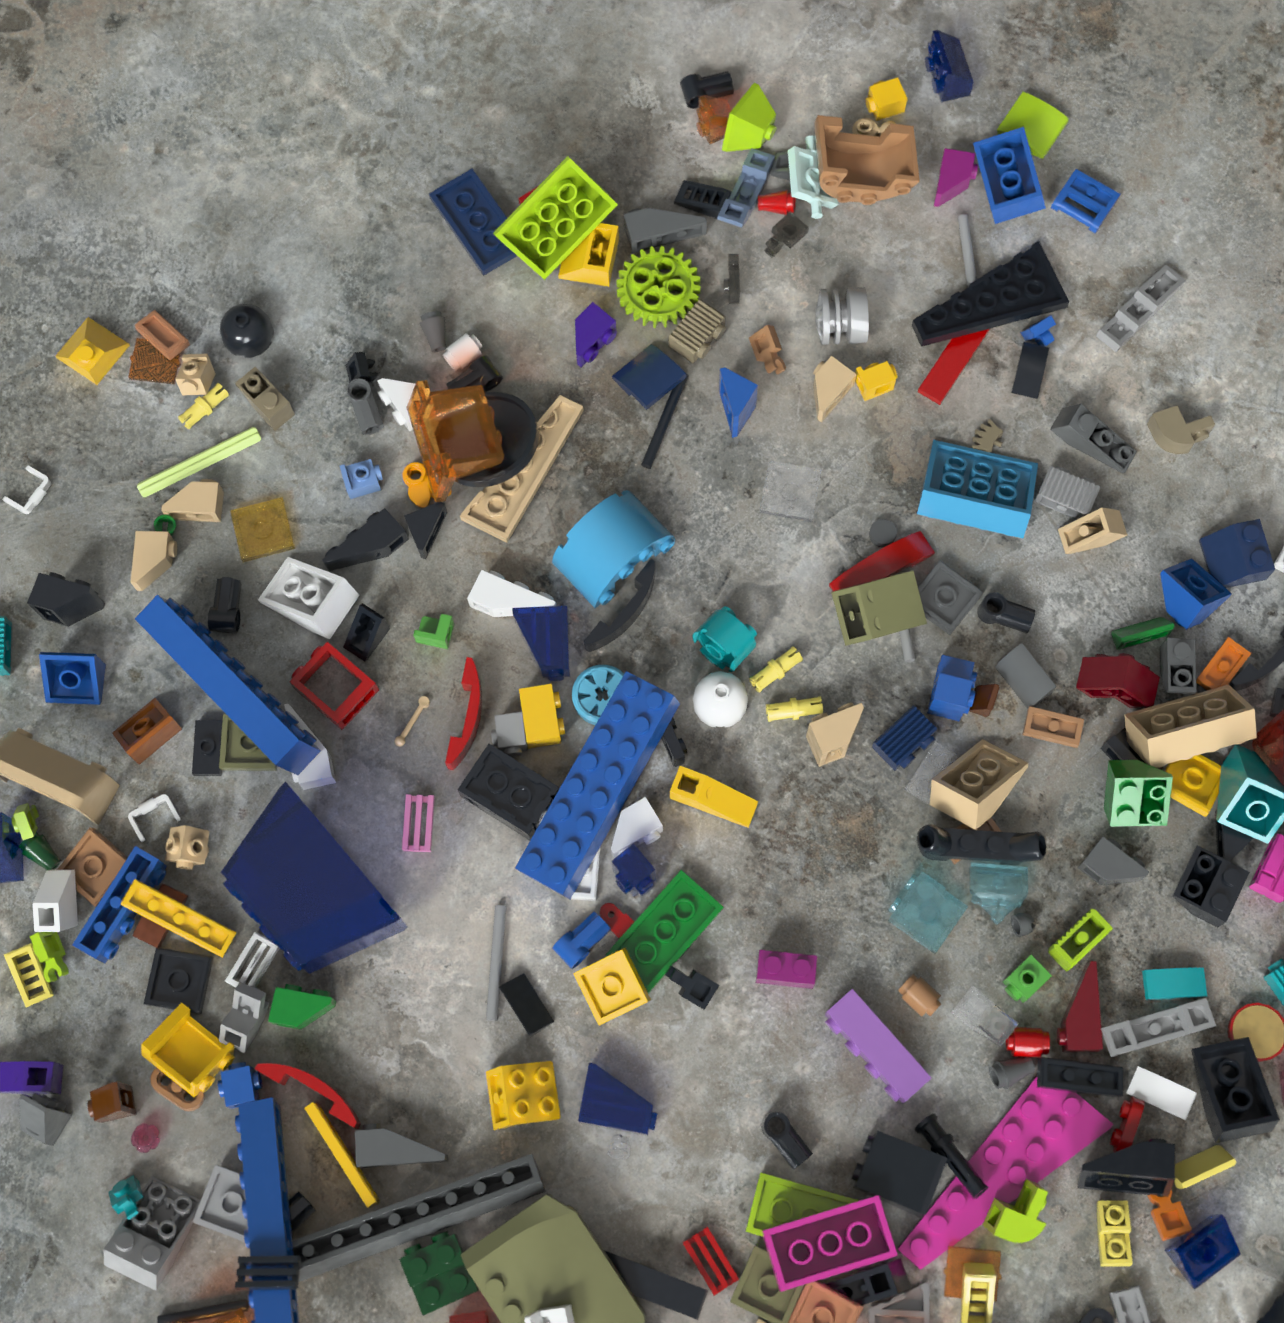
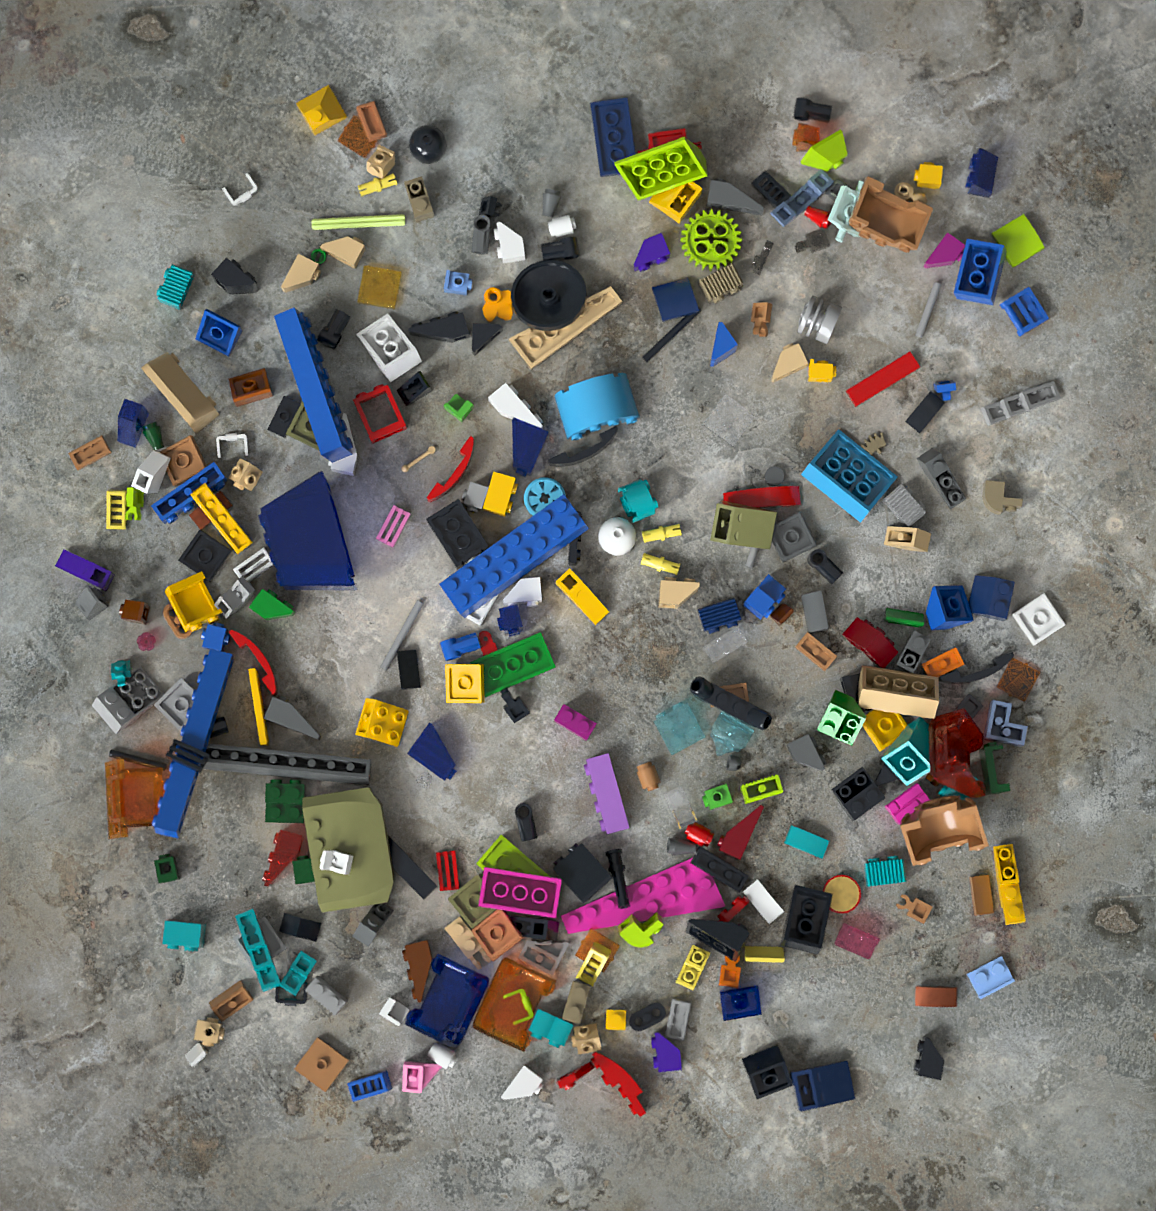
camera: 20 degrees right, 10 degrees up
(24, 820) = (152, 412): lime plate -> none
(453, 434) = (527, 286): clear orange windscreen -> none
(976, 783) = (748, 664): tan slope -> none
(1000, 297) = (935, 353): black wing -> none
(1158, 1027) = (781, 862): light grey slope -> none

